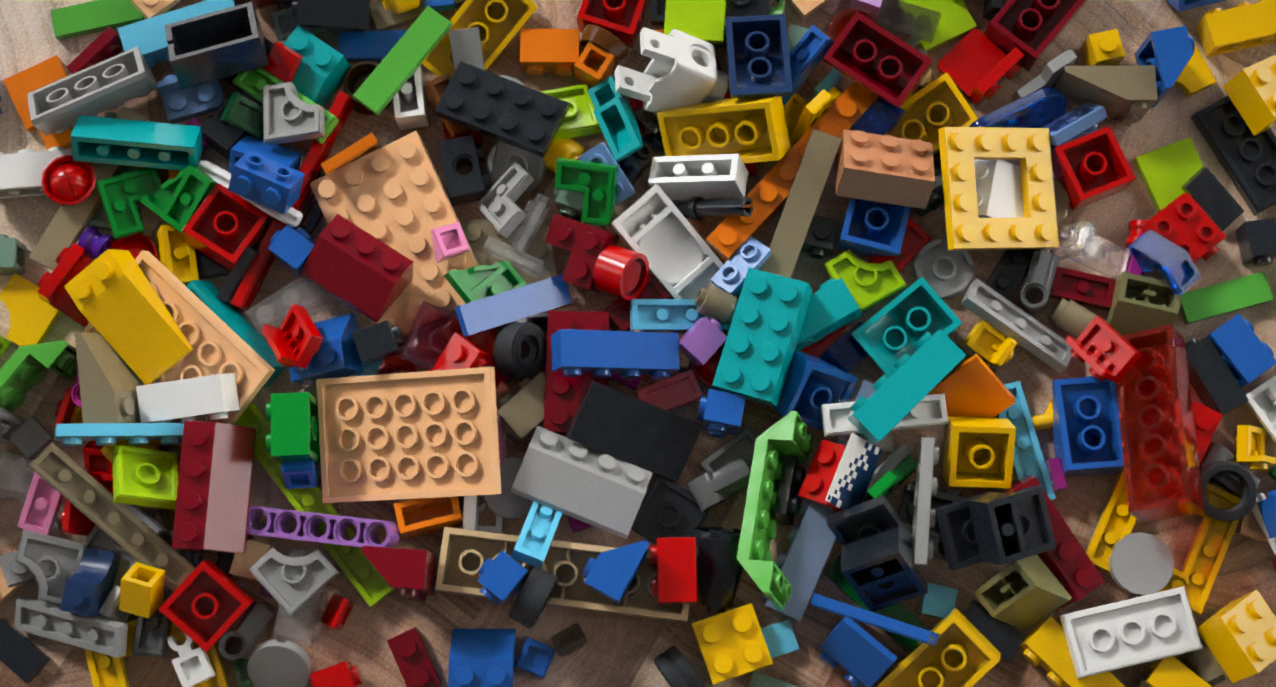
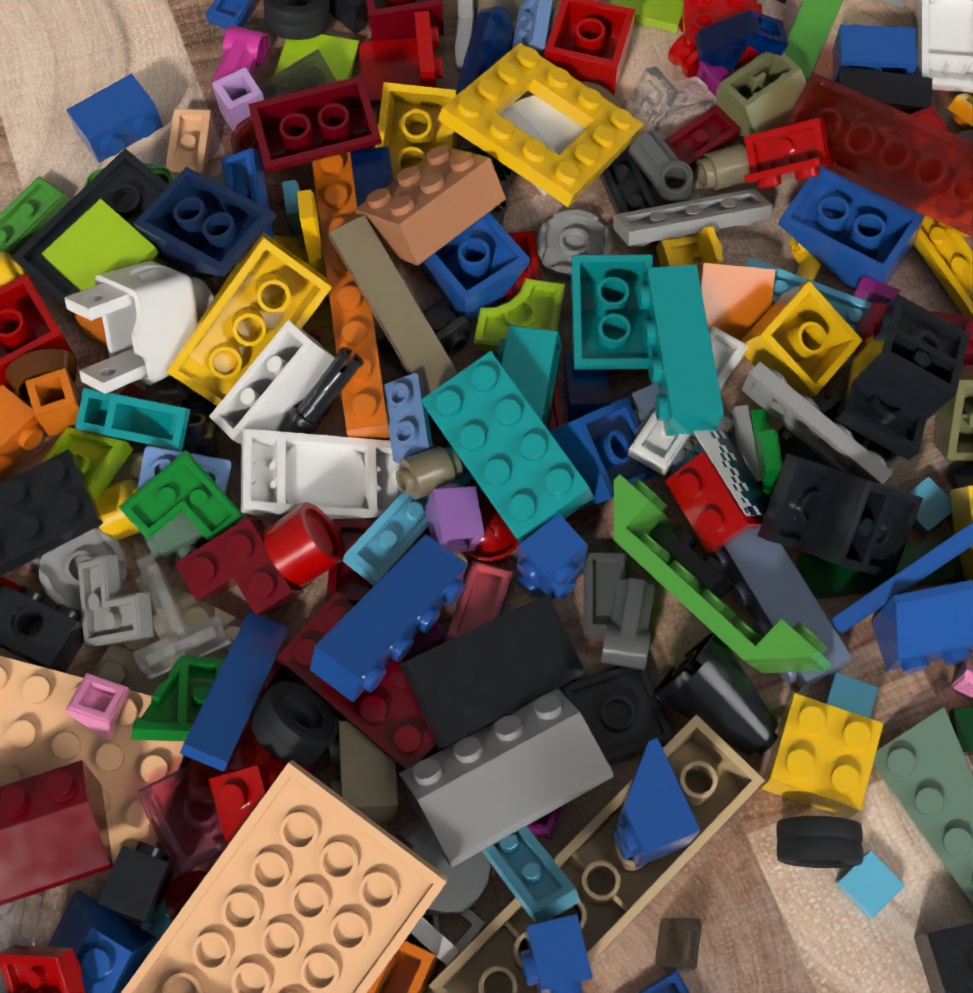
camera: 50 degrees left, 10 degrees down
(533, 597) = (609, 939): black tyre -> none
(675, 570) = (702, 744): red brick -> none

